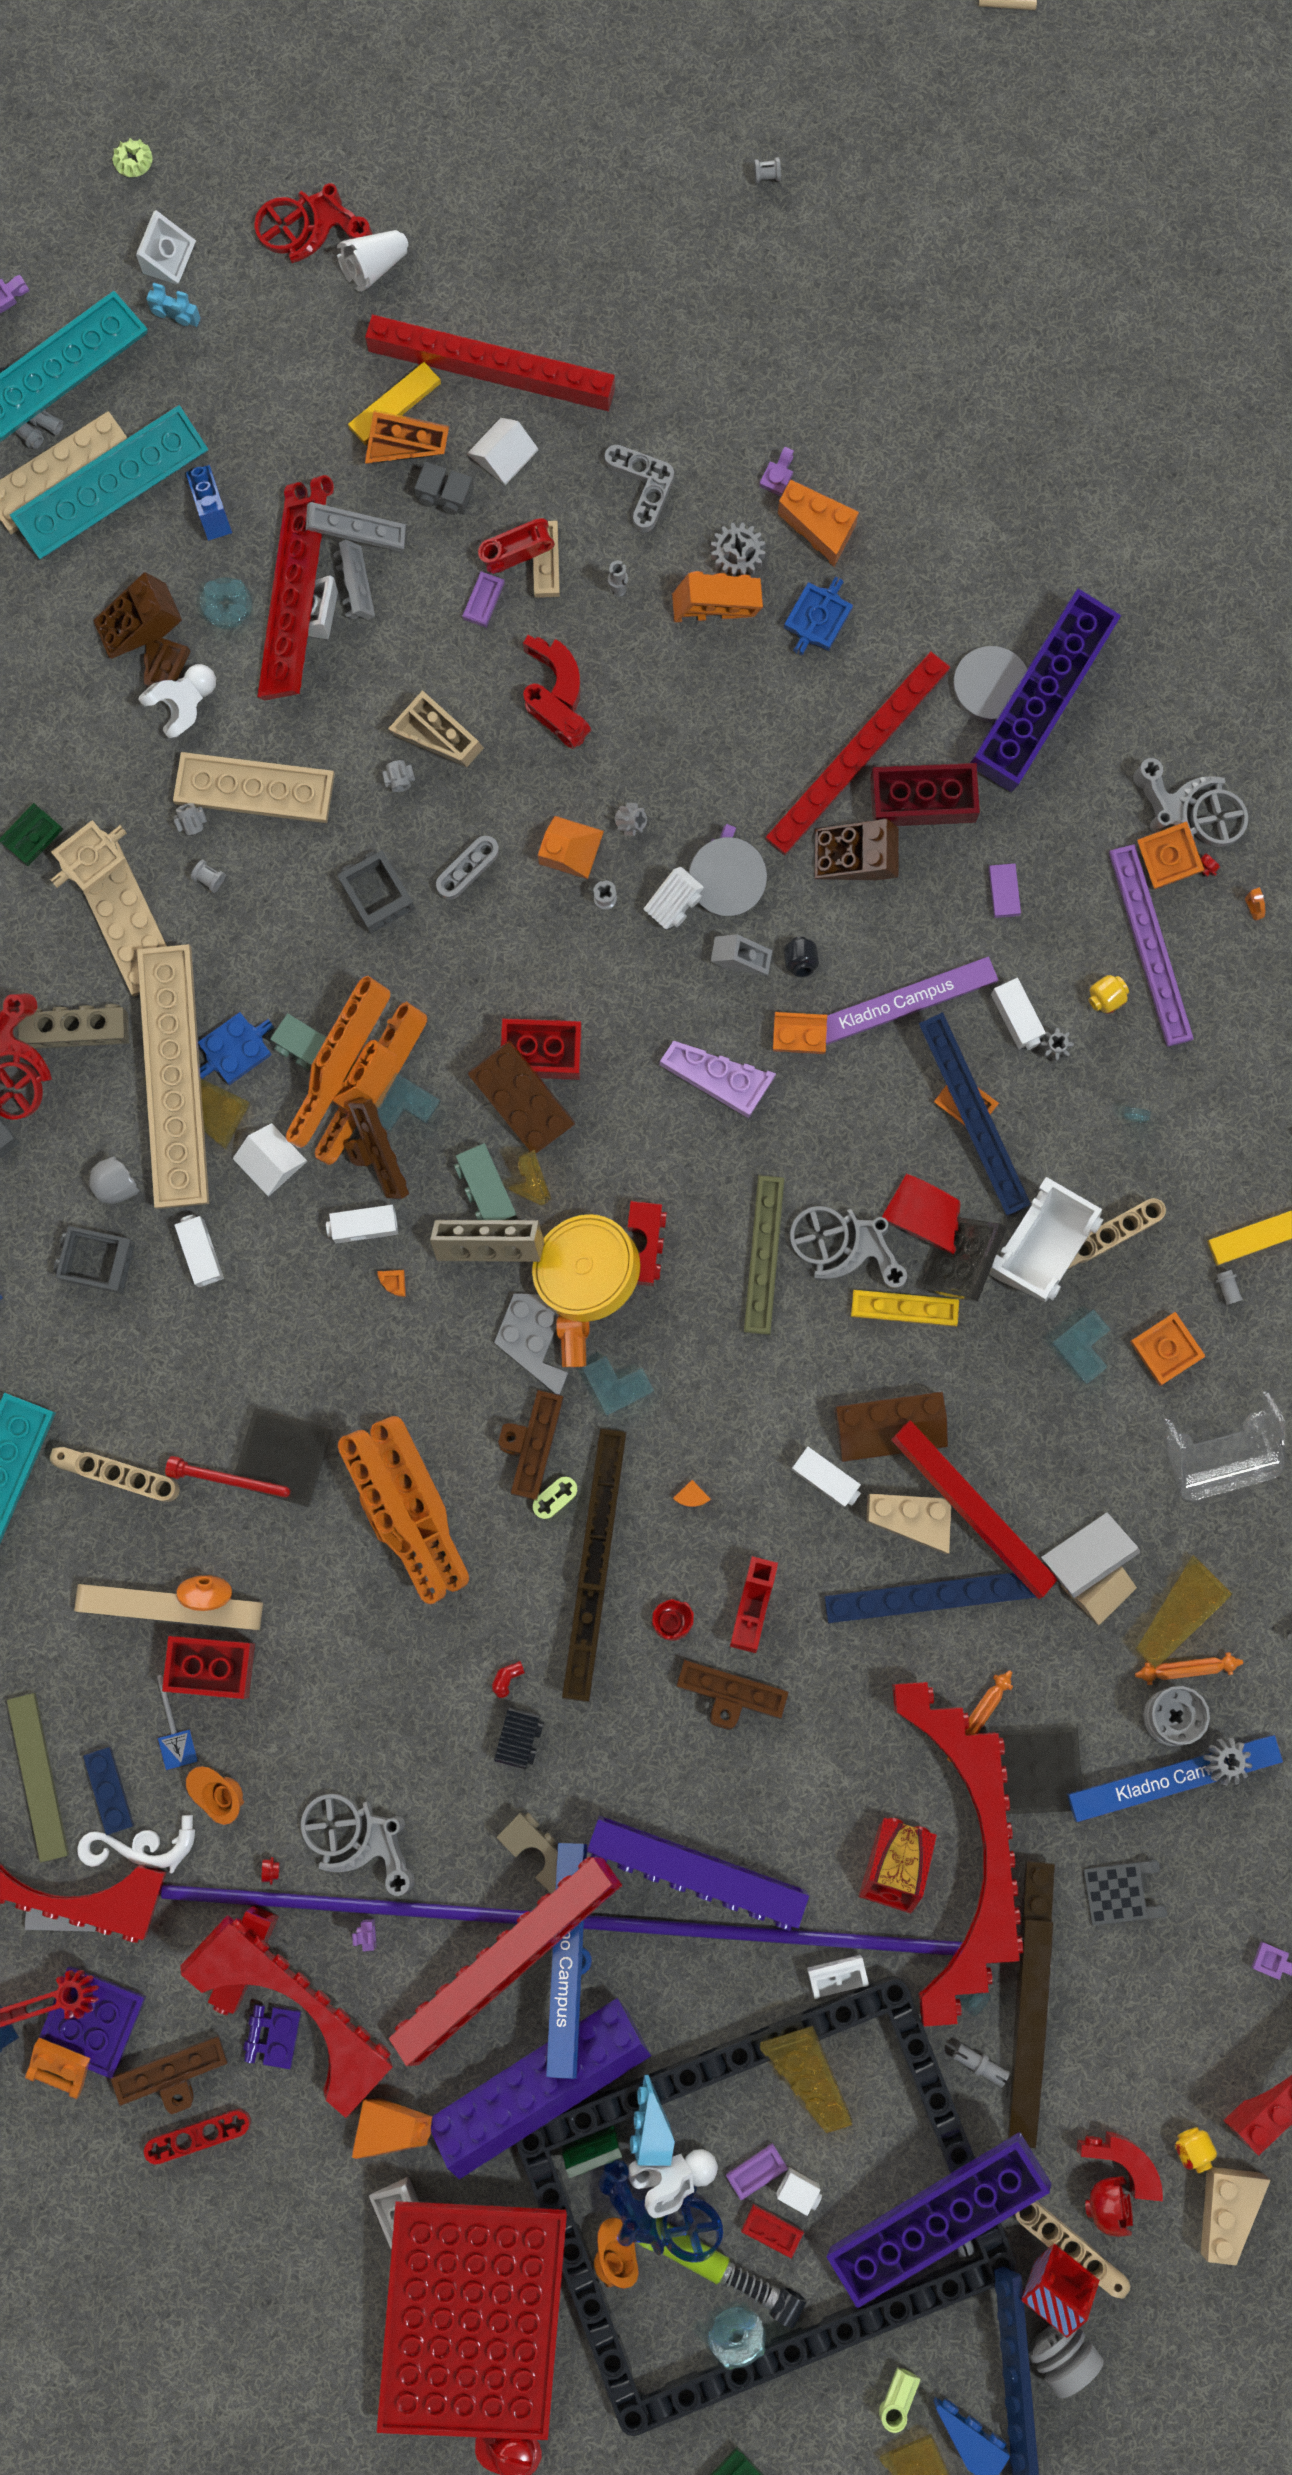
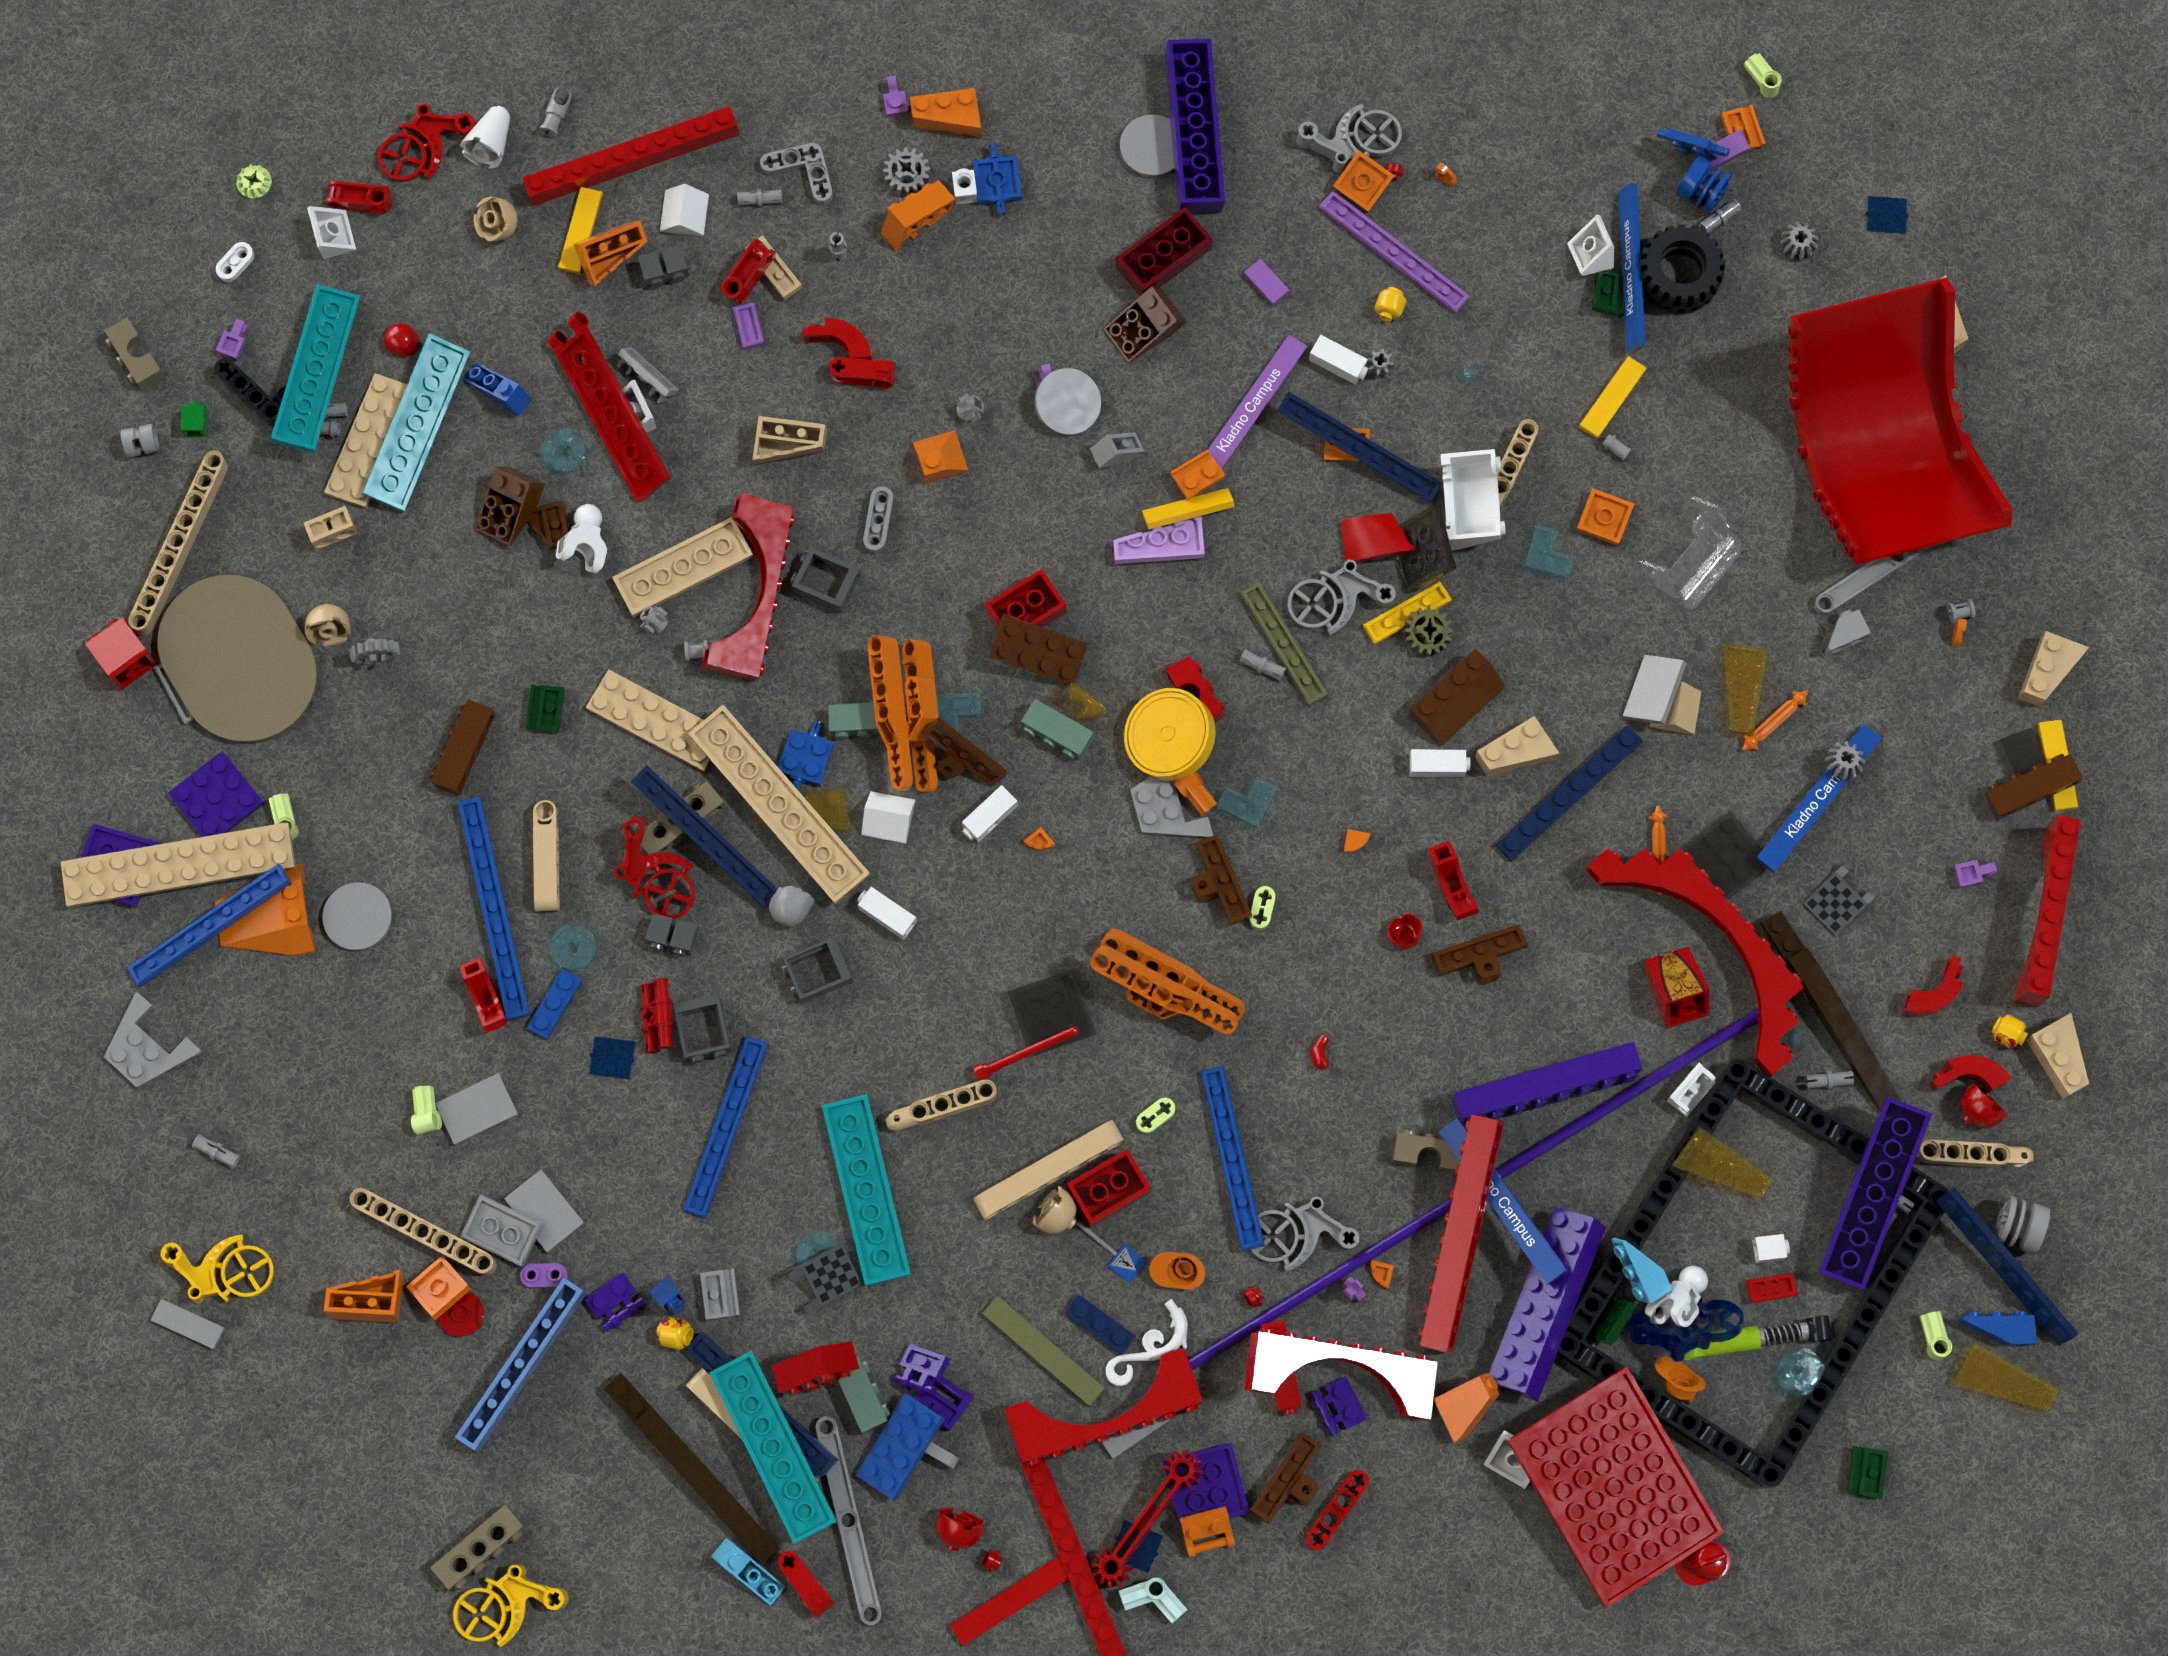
camera: 35 degrees left, 5 degrees down
(59, 219) = (232, 261): none -> white plate
(80, 1058) = (704, 835): none -> dark blue plate
(88, 856) = (602, 693): tan plate -> none
(144, 1655) = (1057, 1212): none -> tan cylinder
(156, 396) = (401, 340): none -> red hair
(178, 308) = (359, 271): medium azure plate -> none
(204, 1593) = (1067, 1140): orange dish -> none
(215, 236) = (358, 197): none -> red piece
(307, 1633) = (1151, 1111): none -> yellowish green beam
(321, 338) = (495, 219): none -> tan cylinder
(347, 1722) = (1232, 1158): none -> blue tile
(355, 526) = (622, 334): light grey tile -> none
(356, 804) = (767, 528): none -> arch
(398, 776) = (782, 488): light grey gear -> none
(409, 1936) = (1381, 1273): none -> orange tile
(449, 277) = (554, 115): none -> light grey piece
(487, 1240) = (1087, 763): dark tan brick -> none
(518, 1737) = (1358, 1085): black brick -> none
(582, 483) = (759, 197): none -> light grey pin
(594, 1565) = (1323, 932): dark brown slope -> none
(604, 887) = (990, 465): light grey bush -> none
(674, 898) = (1042, 441): white brick -> none
(728, 1261) = (1262, 664): none -> light grey pin
(756, 2171) = (1732, 1258): medium lavender tile -> none
(767, 1060) = (1189, 509): none -> yellow tile
(776, 610) = (968, 194): none -> white brick
(801, 957) = (1159, 422): black head -> none
(857, 753) = (1094, 256): red plate -> none
(919, 1329) = (1418, 631): none -> olive gear
(974, 1509) = (1554, 712): red tile -> none
(1060, 2290) = (1987, 1180): red container -> none
(1151, 2064) = (1930, 1002): none -> red arch
(1192, 1716) = (1792, 743): light grey wheel -> none

